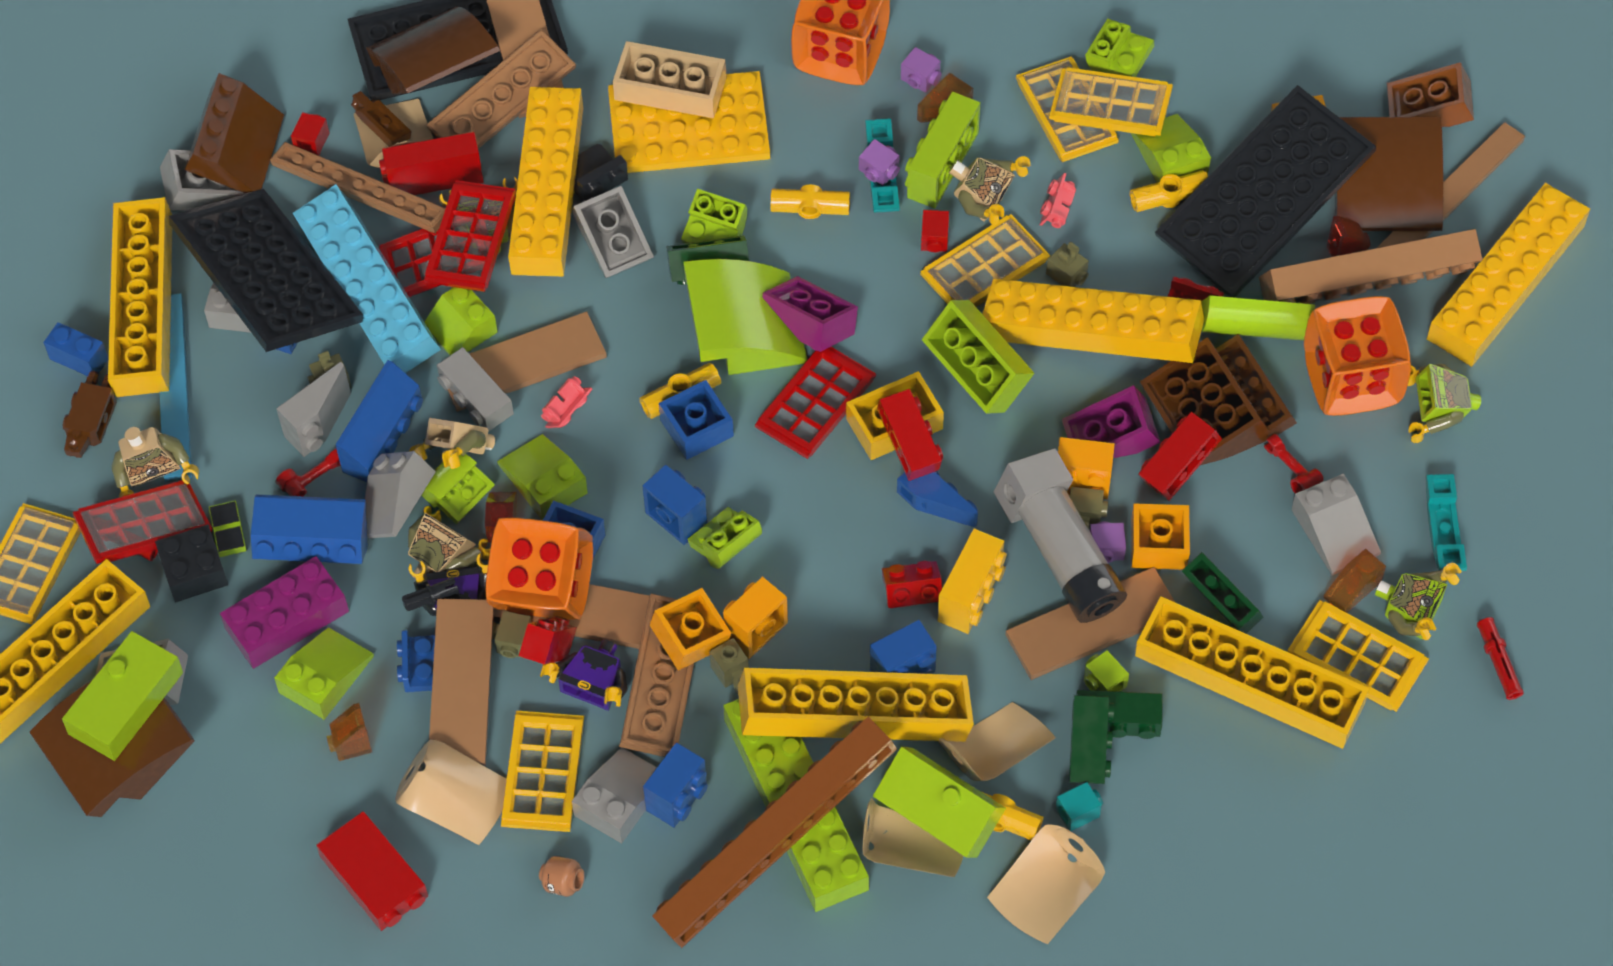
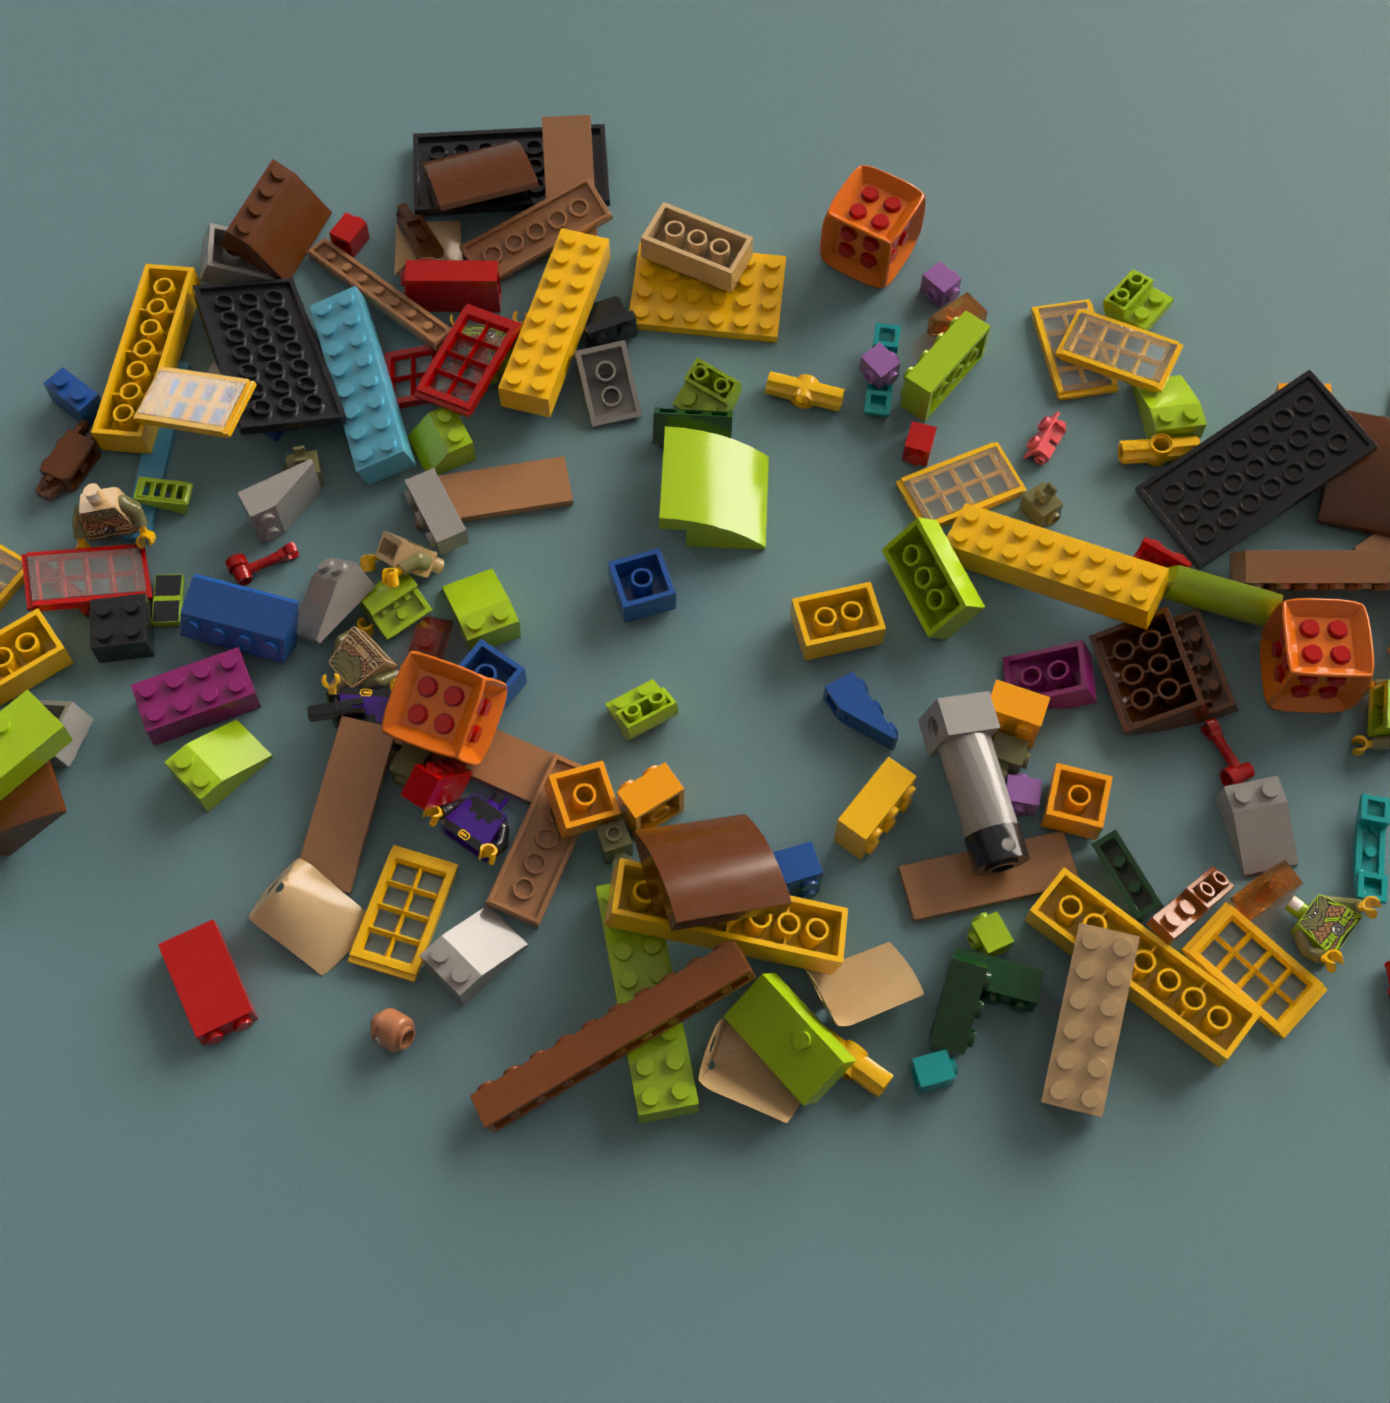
camera: 10 degrees right, 5 degrees up
(202, 418) = (171, 504): none -> lime slope
(209, 329) = (195, 402): none -> clear piece
(349, 734) = (224, 835): clear orange slope -> none
(378, 421) = (336, 523): blue slope -> none
(417, 662) = (307, 773): blue bracket -> none
(559, 412) = (512, 550): coral hinge -> none
(675, 503) = (600, 666): blue brick -> none
(675, 785) = (528, 960): blue brick -> none
(679, 381) = (634, 543): yellow piece -> none
(812, 313) = (780, 501): magenta slope -> none
(815, 401) = (763, 589): red piece -> none
(832, 662) = (710, 872): none -> reddish brown slope
(910, 434) = (847, 645): red brick -> none
(912, 584) = (816, 796): red bracket -> none
(985, 184) = (978, 407): torso -> none
(1045, 885) = (881, 1150): tan piece -> none
(1179, 456) = (1113, 721): red brick -> none
(1213, 726) = (1090, 1020): none -> tan brick
(1287, 608) = (1190, 905): none -> dark orange slope
(1346, 237) = (1326, 532): clear red slope -> none

